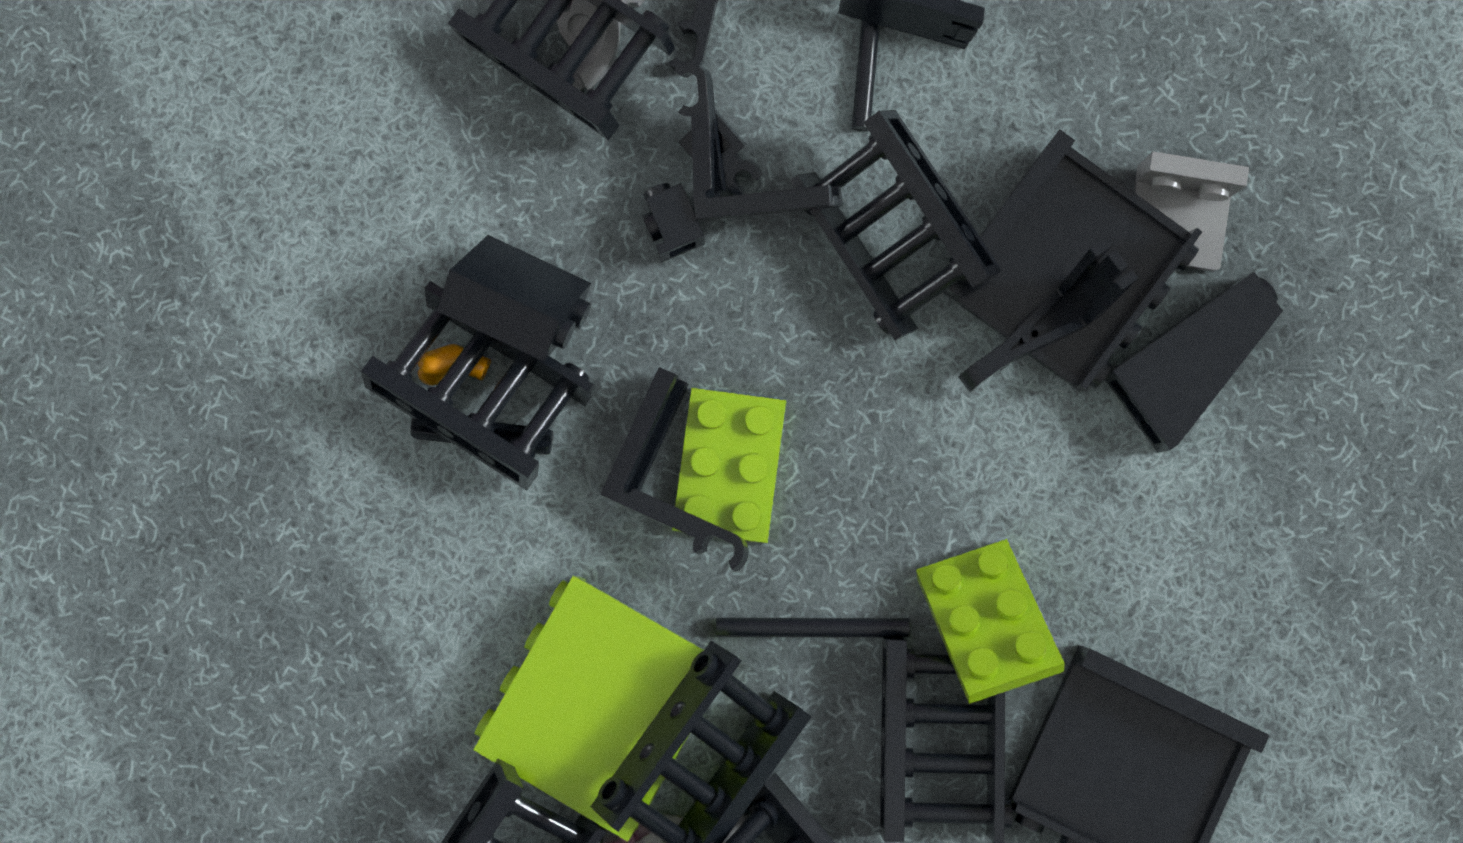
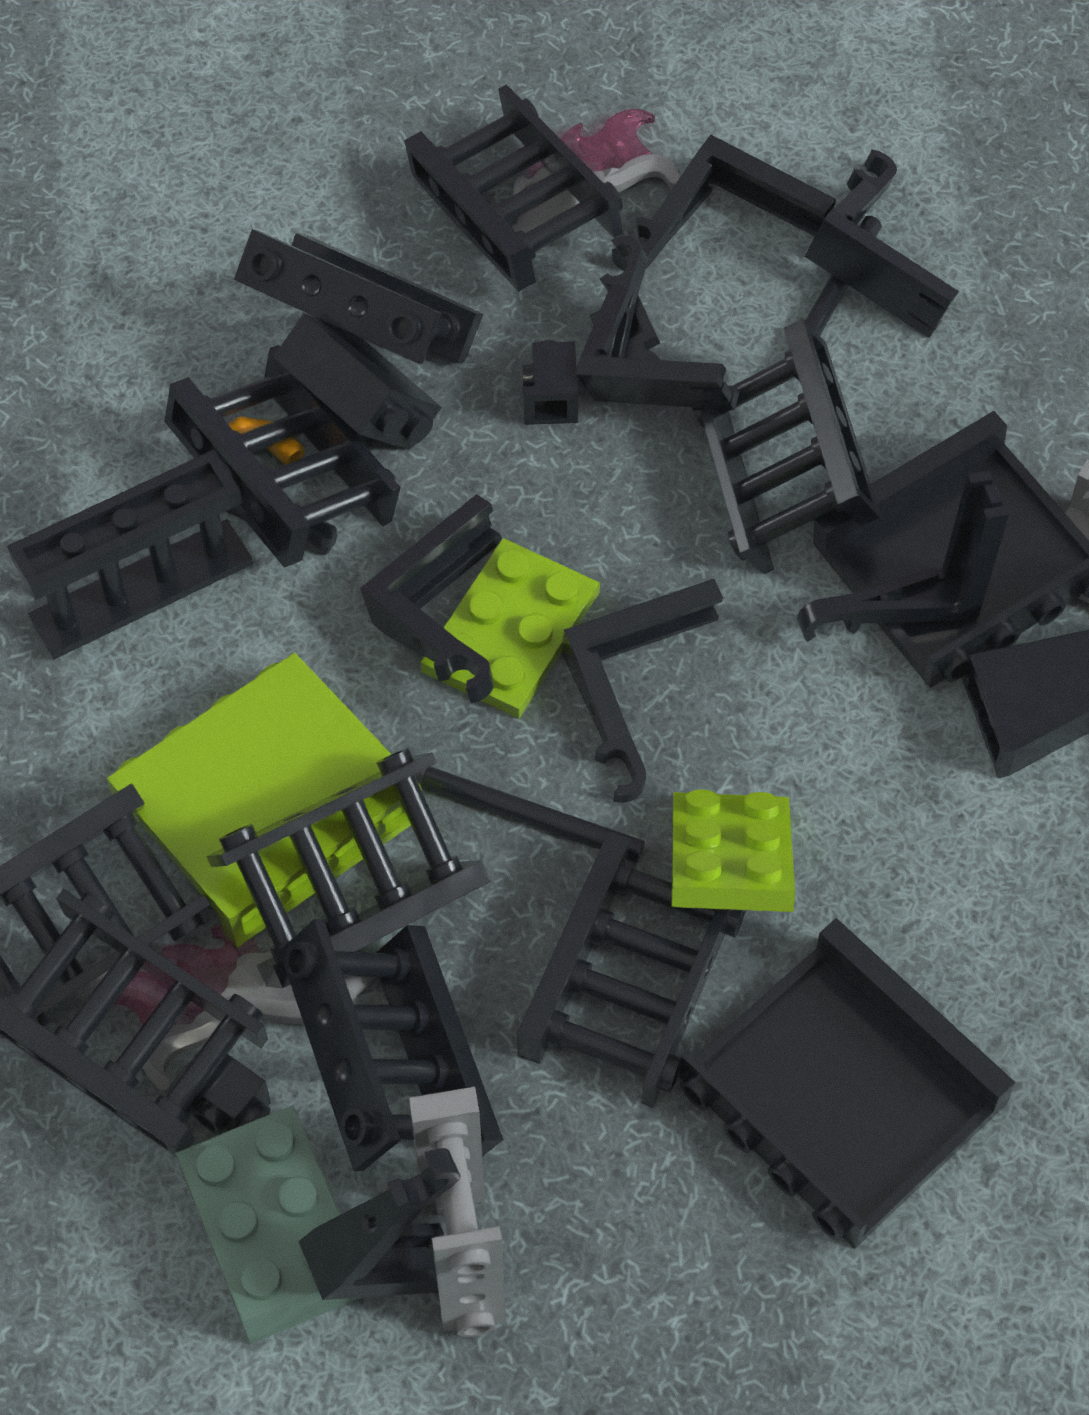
camera: 25 degrees right, 25 degrees down
(400, 548) = (119, 528): none -> black fence
(482, 188) = (358, 297): none -> black fence
(821, 446) = (618, 633): none -> black hinge

